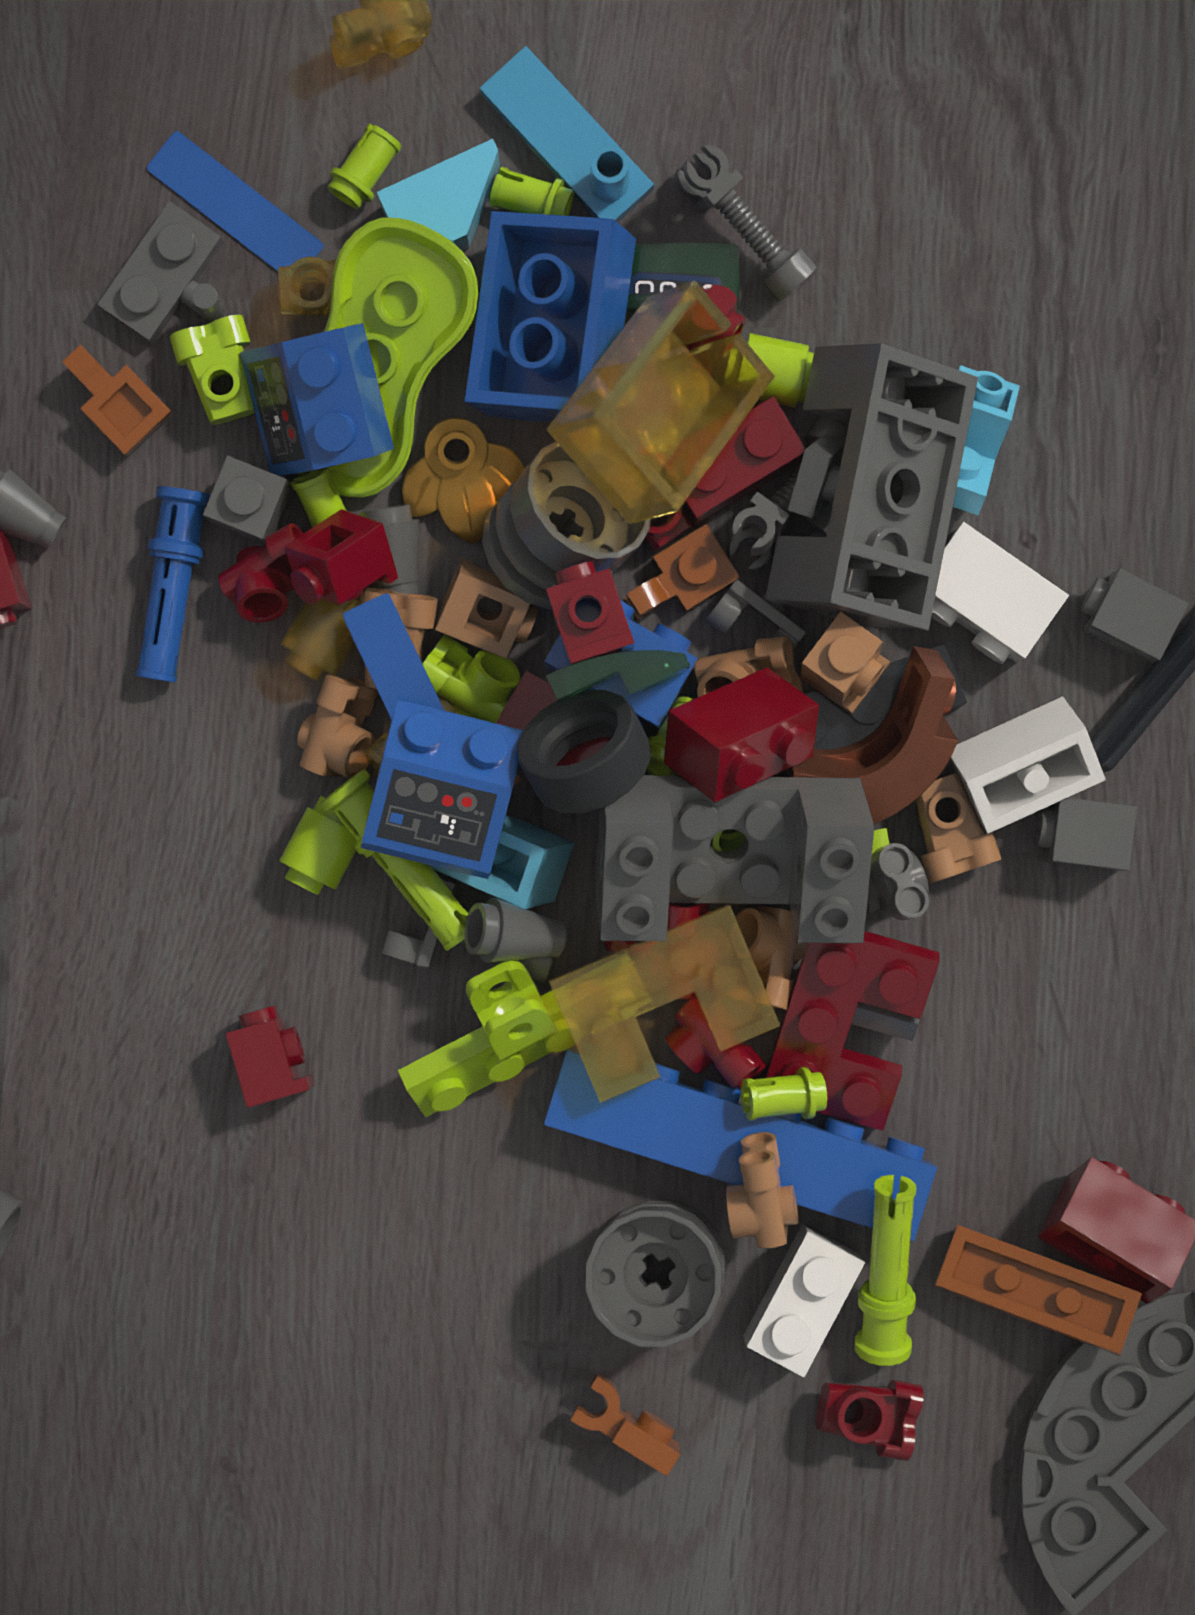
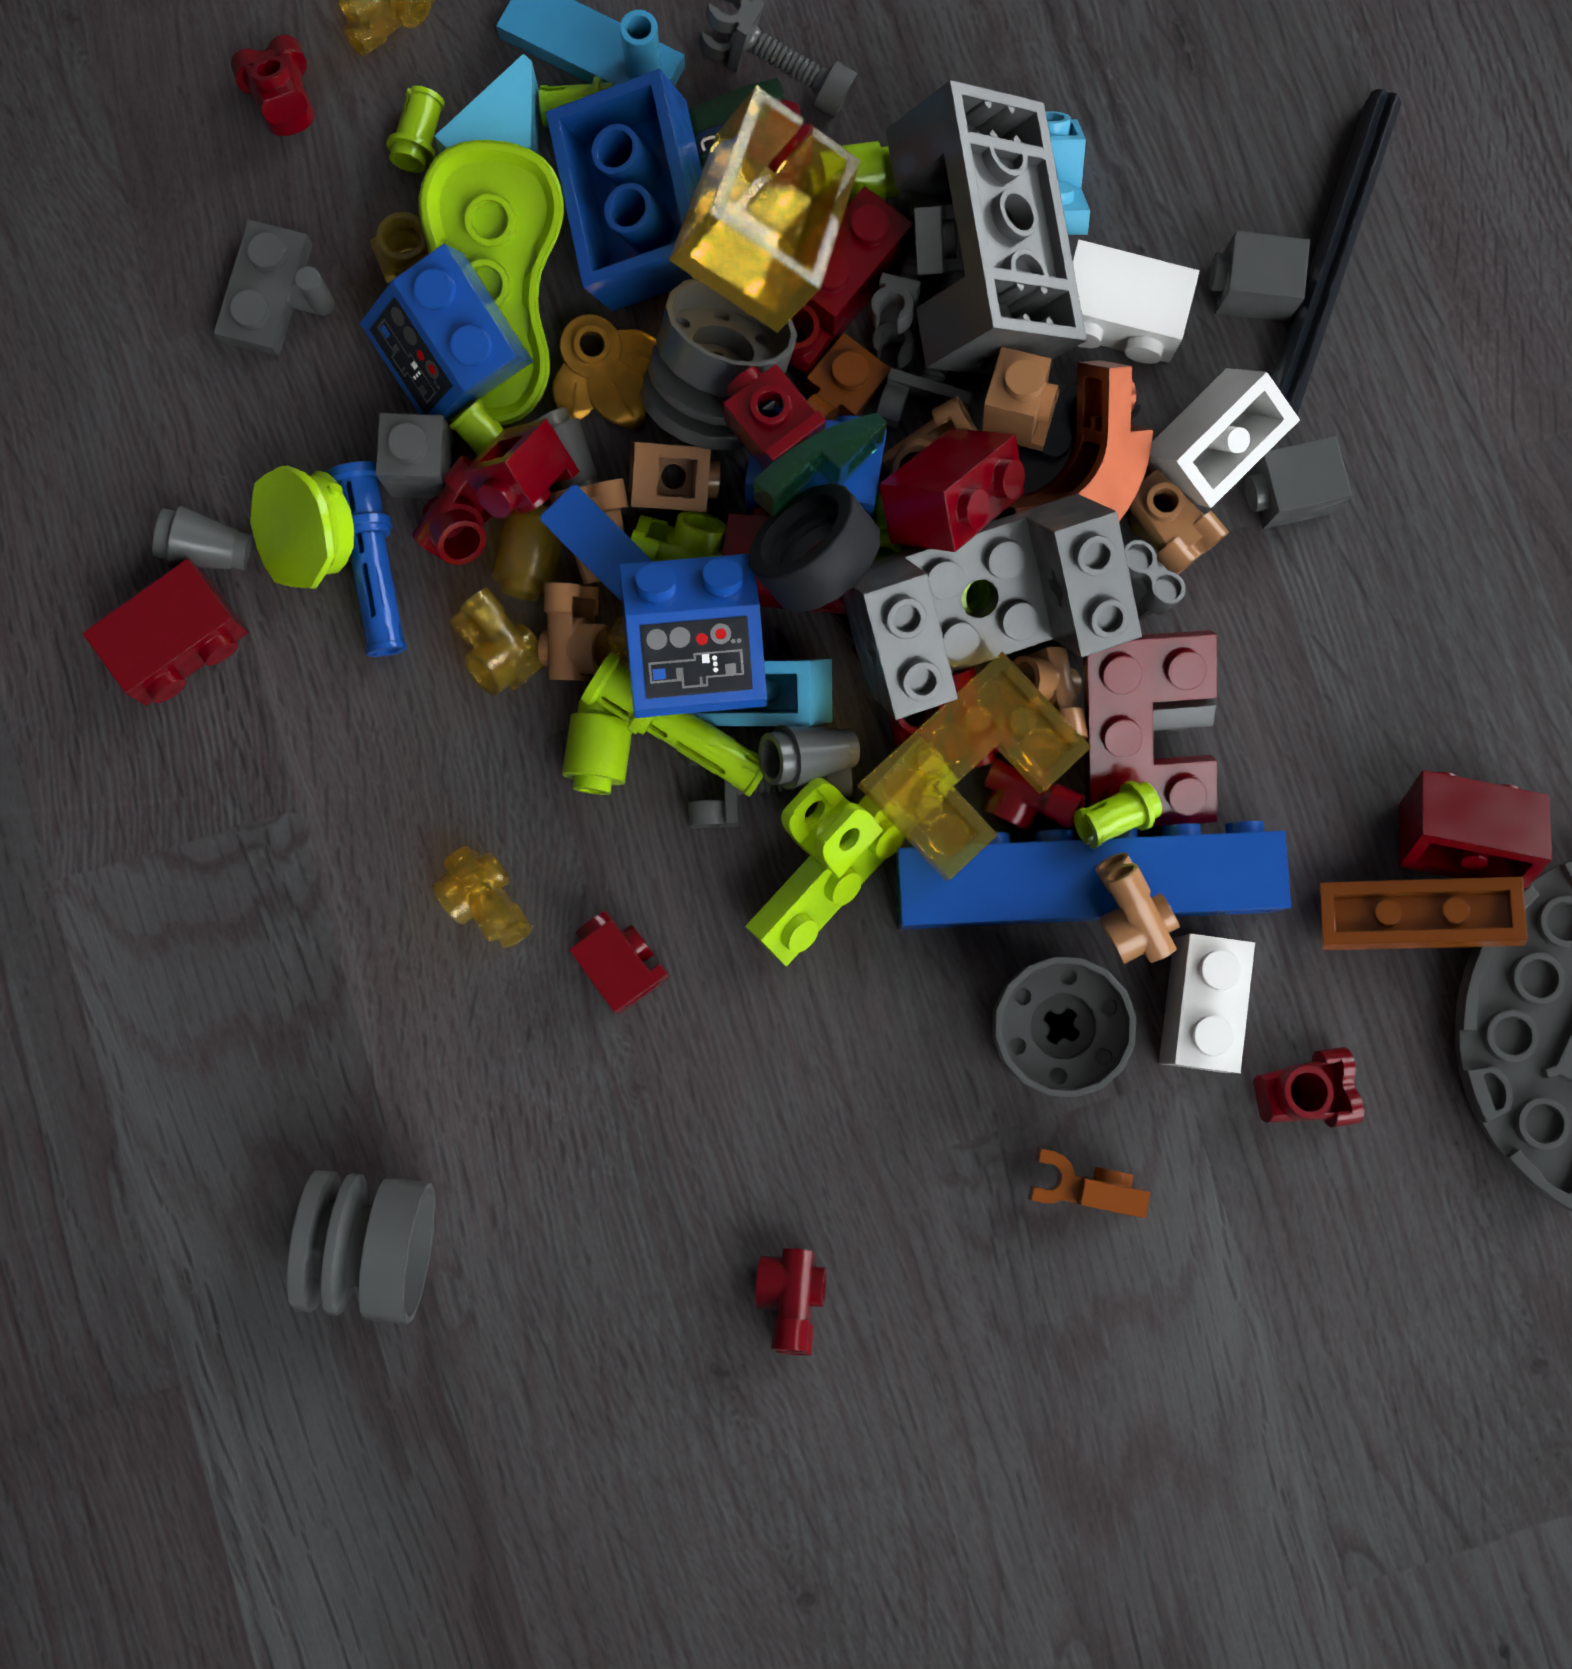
camera: 25 degrees left, 5 degrees down
(116, 534) = (301, 526): none -> lime hat
(120, 404) = (264, 414): dark orange plate -> none
(161, 940) = (476, 891): none -> clear yellow plate
(215, 352) = (338, 341): lime plate -> none
(232, 203) = (302, 206): blue sticker -> none
(243, 71) = (276, 84): none -> dark red plate
(266, 722) = (501, 652): none -> clear yellow plate
(321, 1417) = (792, 1288): none -> dark red plate
(886, 1295) = (1283, 969): lime pin -> none

